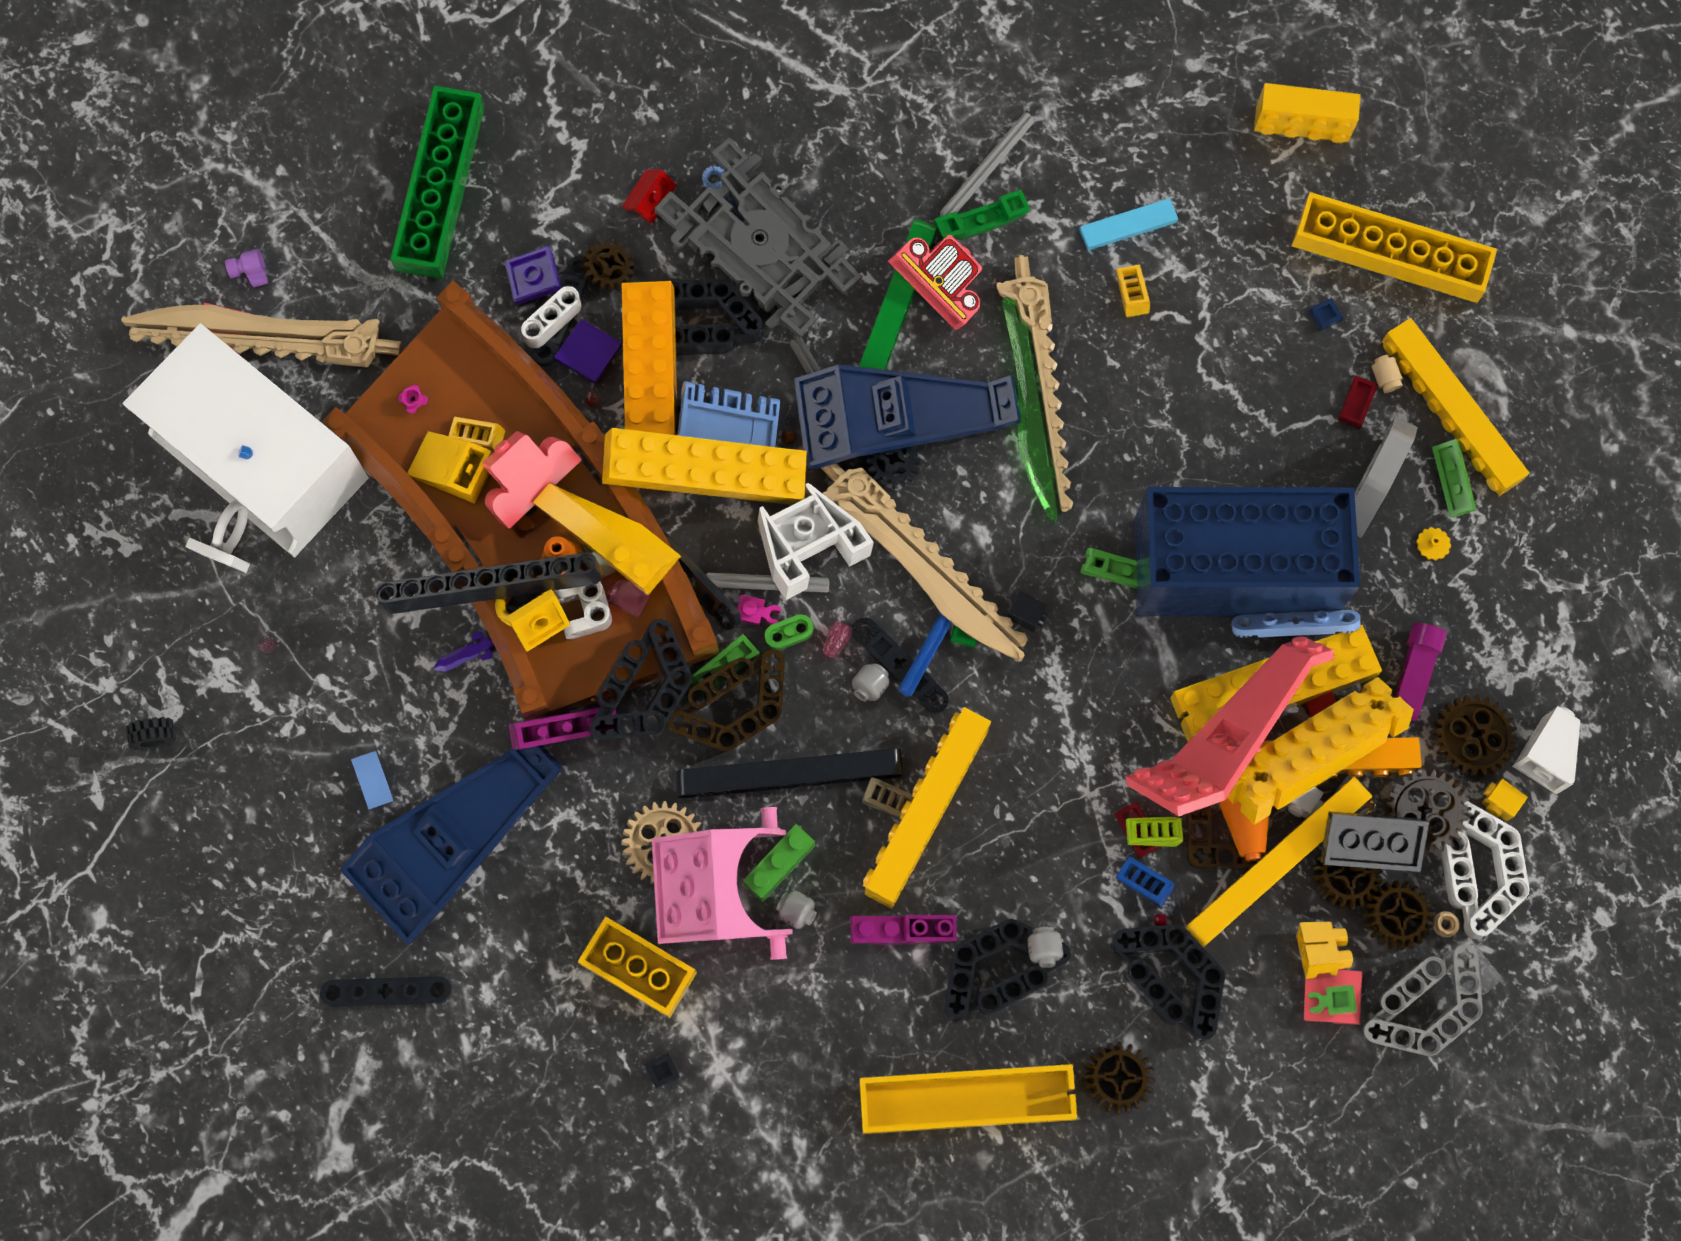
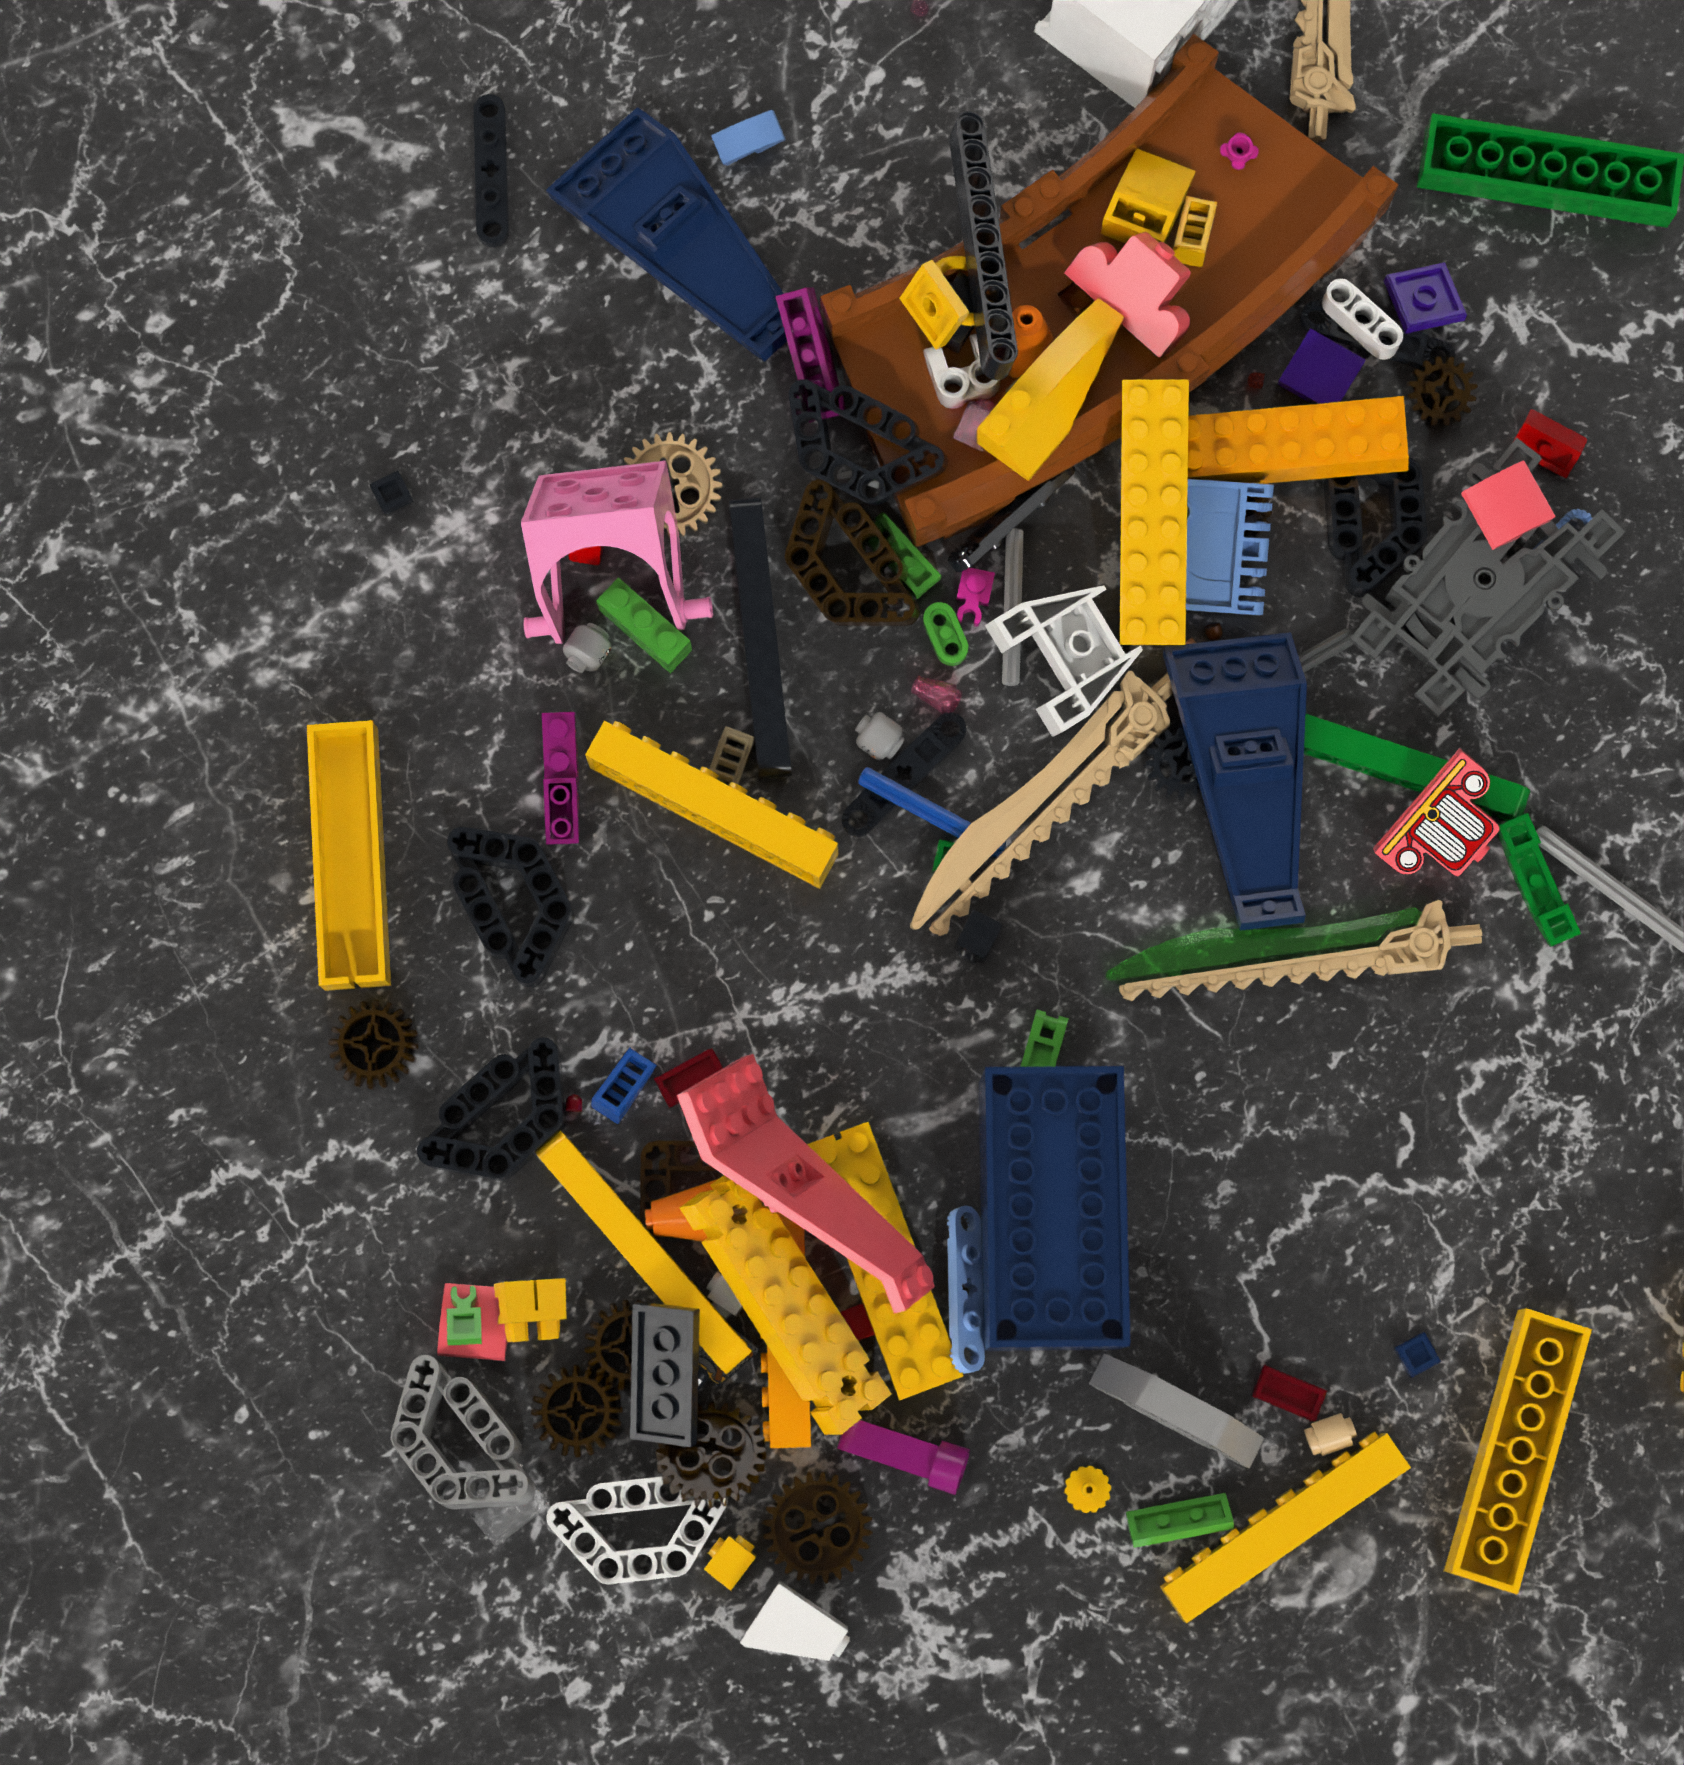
camera: 90 degrees right, 5 degrees up
(466, 653) = (910, 237): dark purple sword -> none
(637, 967) = (513, 455): yellow brick -> none
(707, 215) = (1508, 505): none -> coral slope
(1045, 946) = (531, 947): light grey head -> none
(1128, 224) = (1539, 1083): medium azure tile -> none
(1137, 304) = (1420, 1090): yellow slope -> none
(1167, 824) = (680, 1064): lime slope -> none
(1451, 919) = (555, 1475): tan plate -> none

